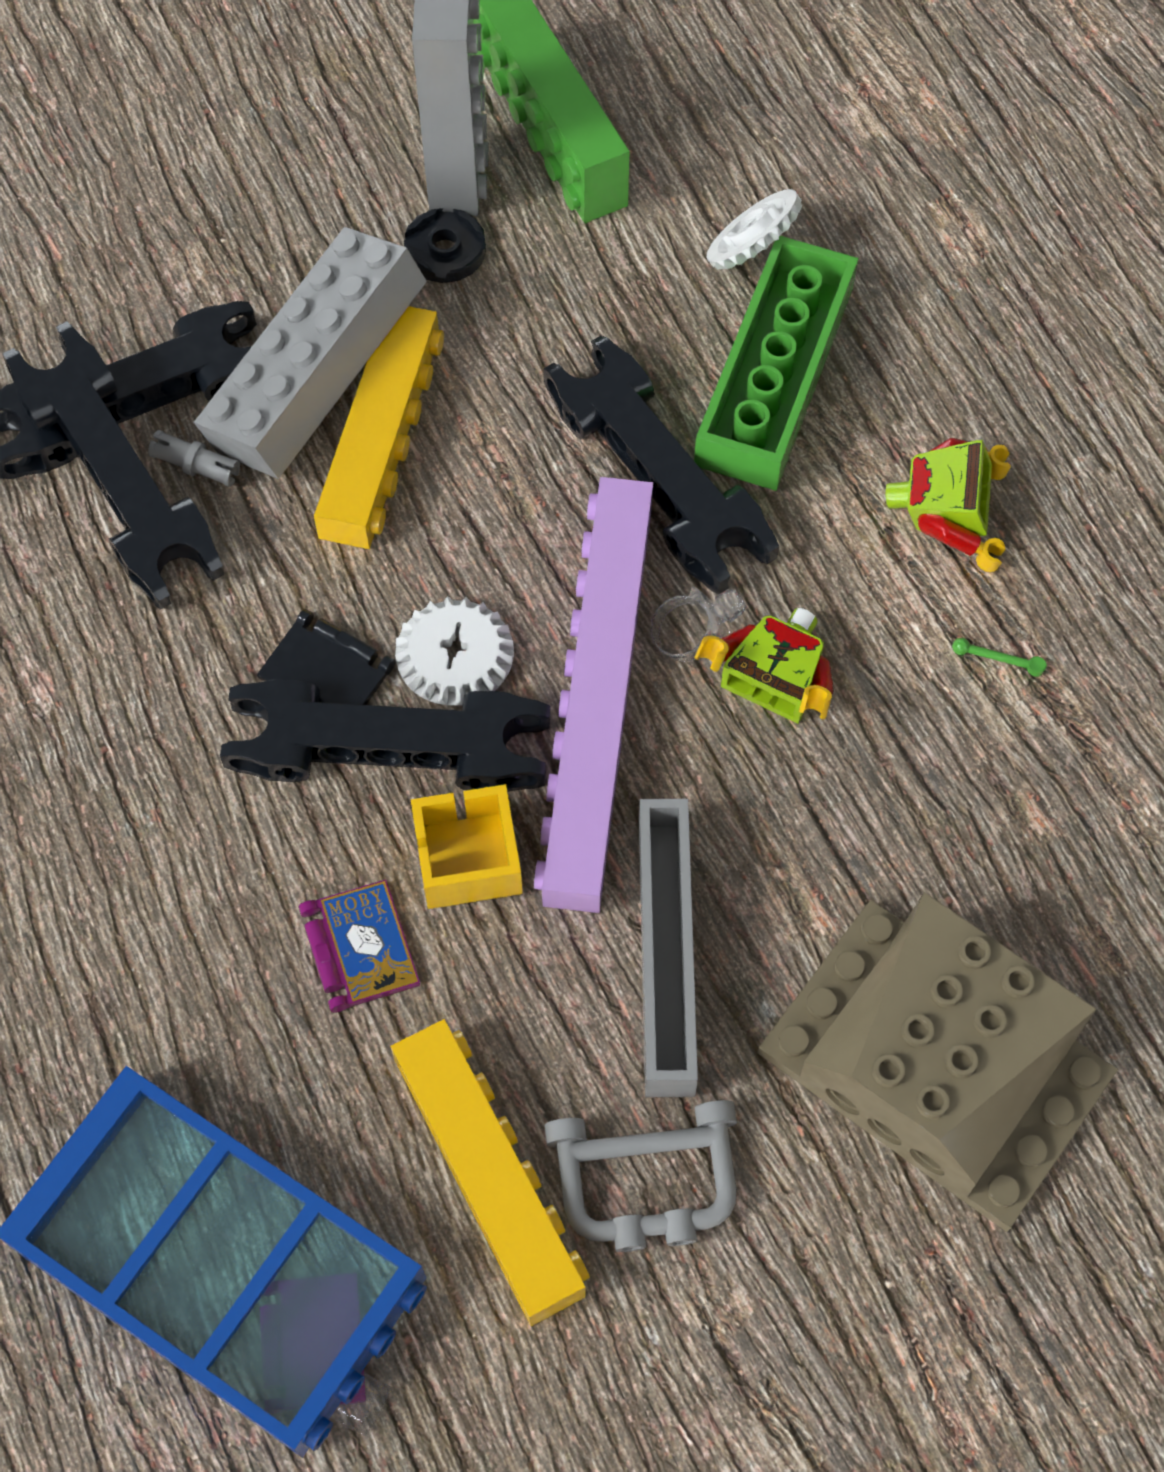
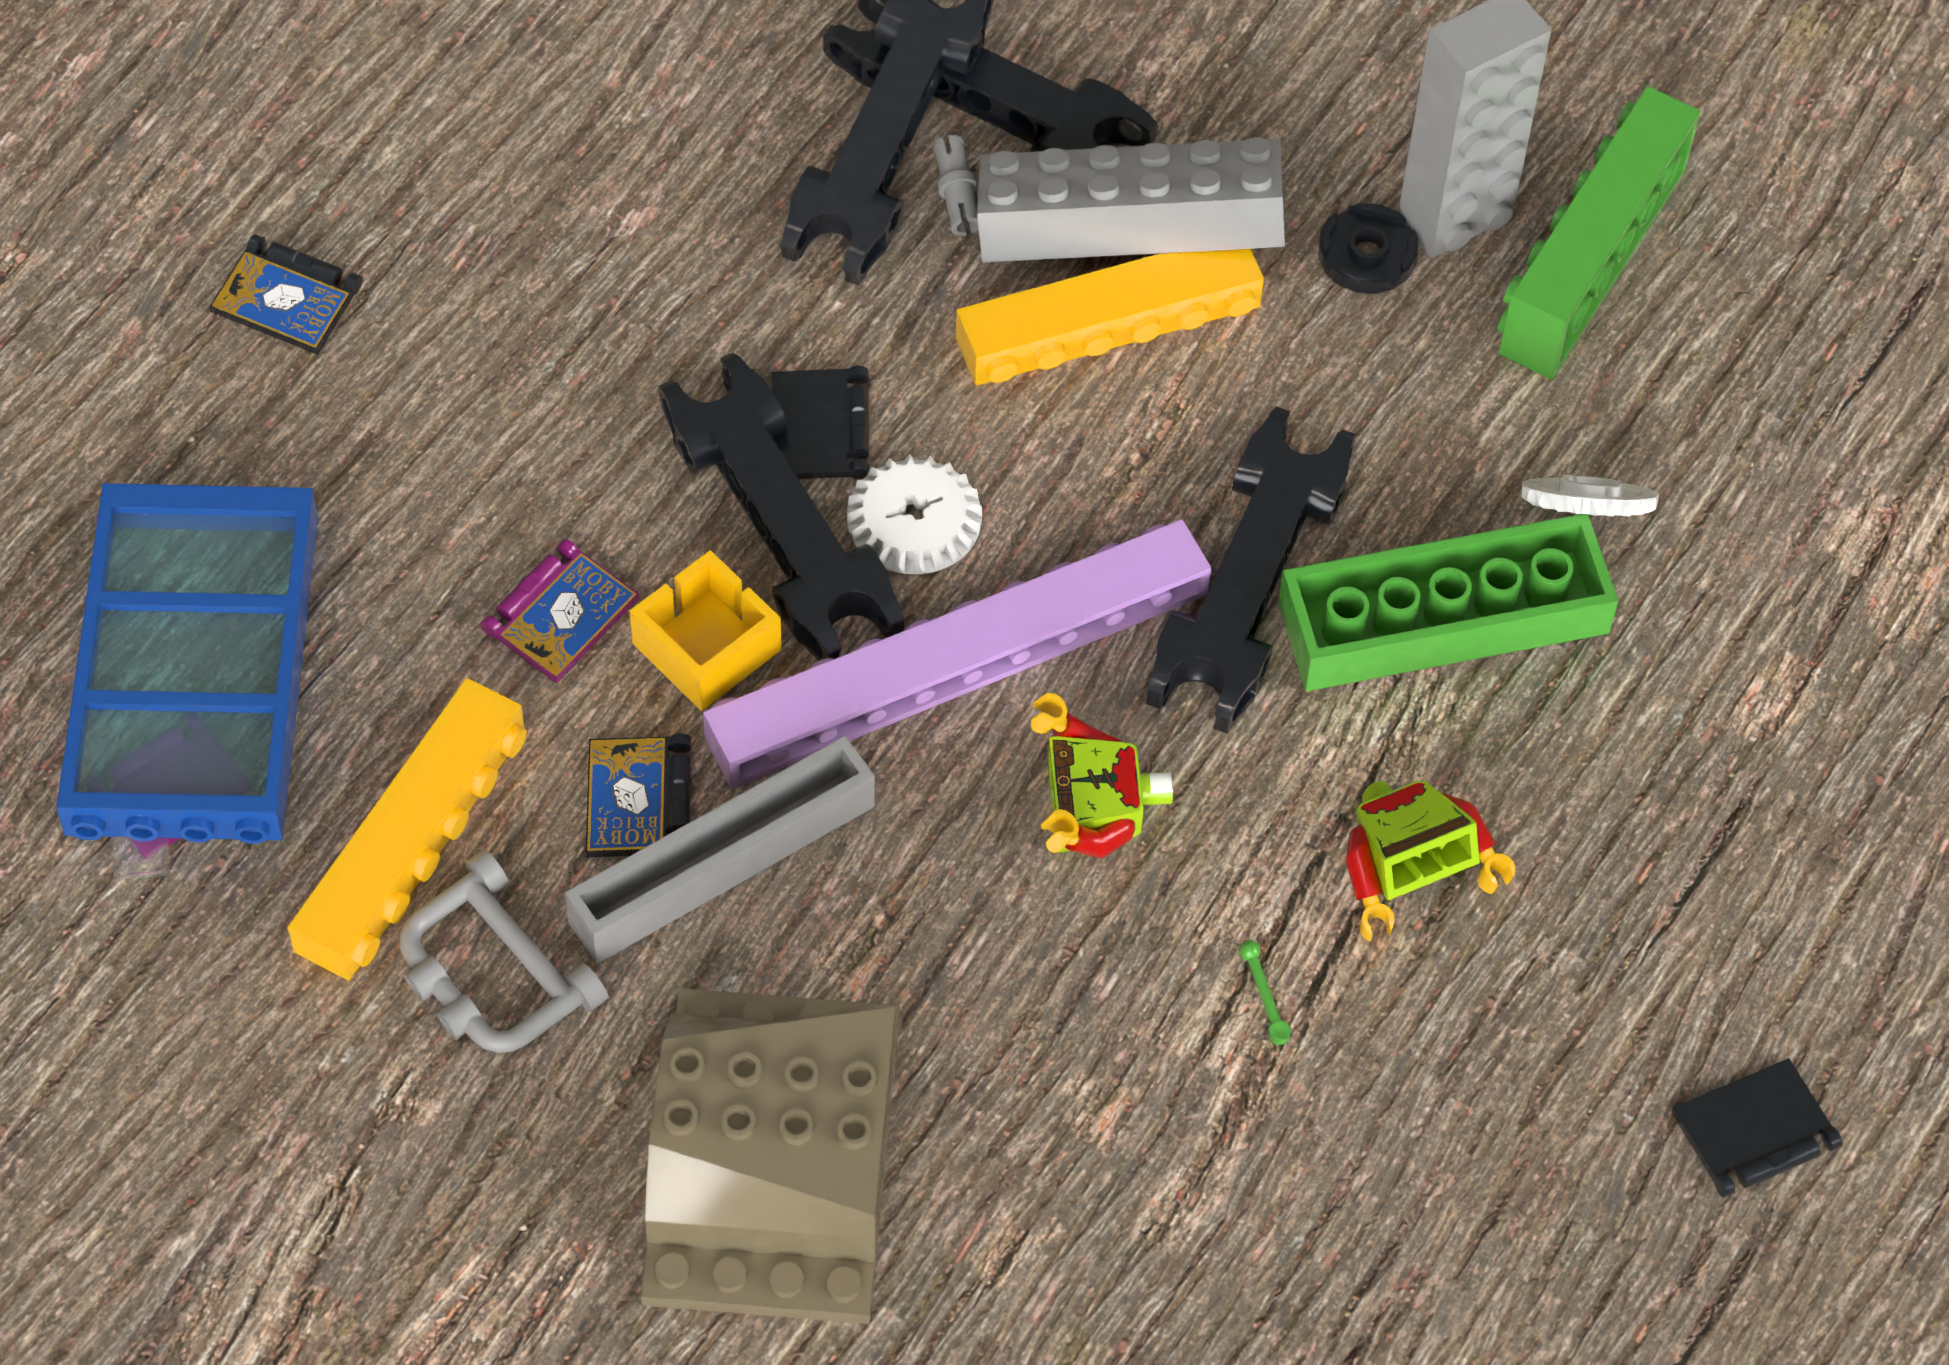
camera: 55 degrees right, 5 degrees down
(564, 983) = (636, 792): none -> piece
(726, 607) = (1112, 708): clear piece -> none

